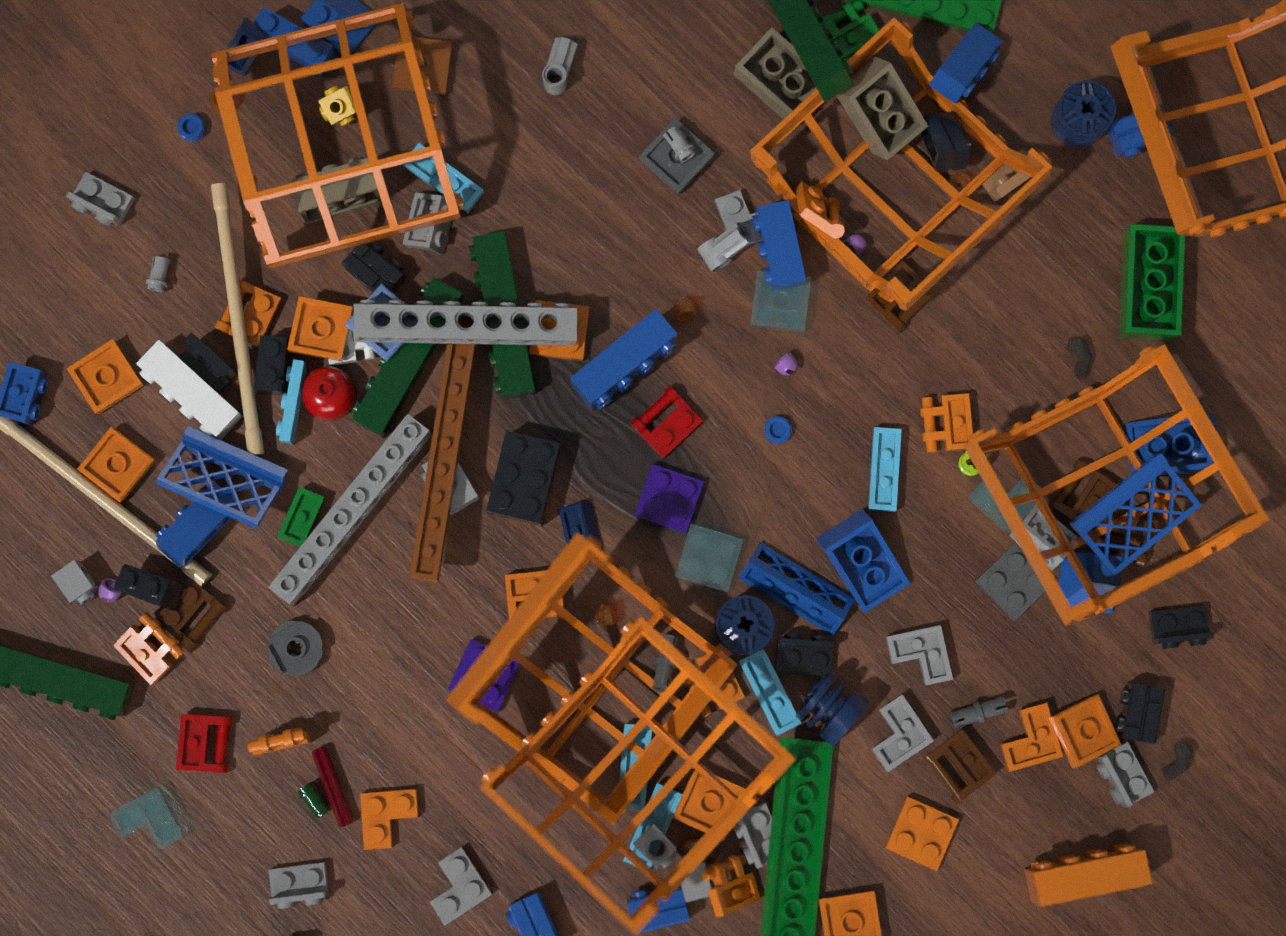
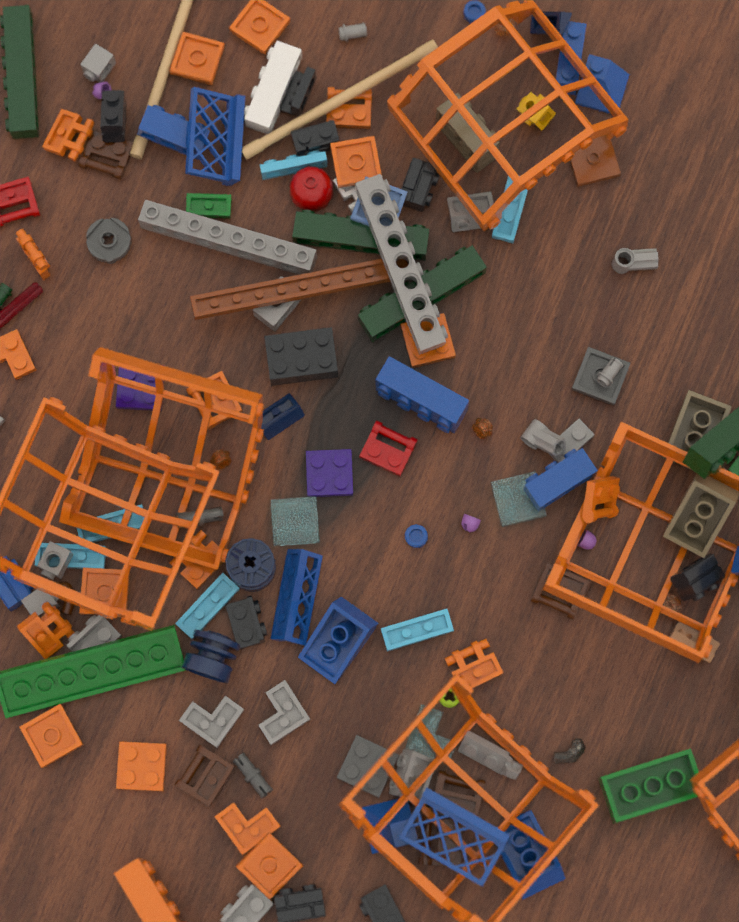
camera: 70 degrees right, 5 degrees down
(1054, 443) = (489, 755): none -> light grey hinge

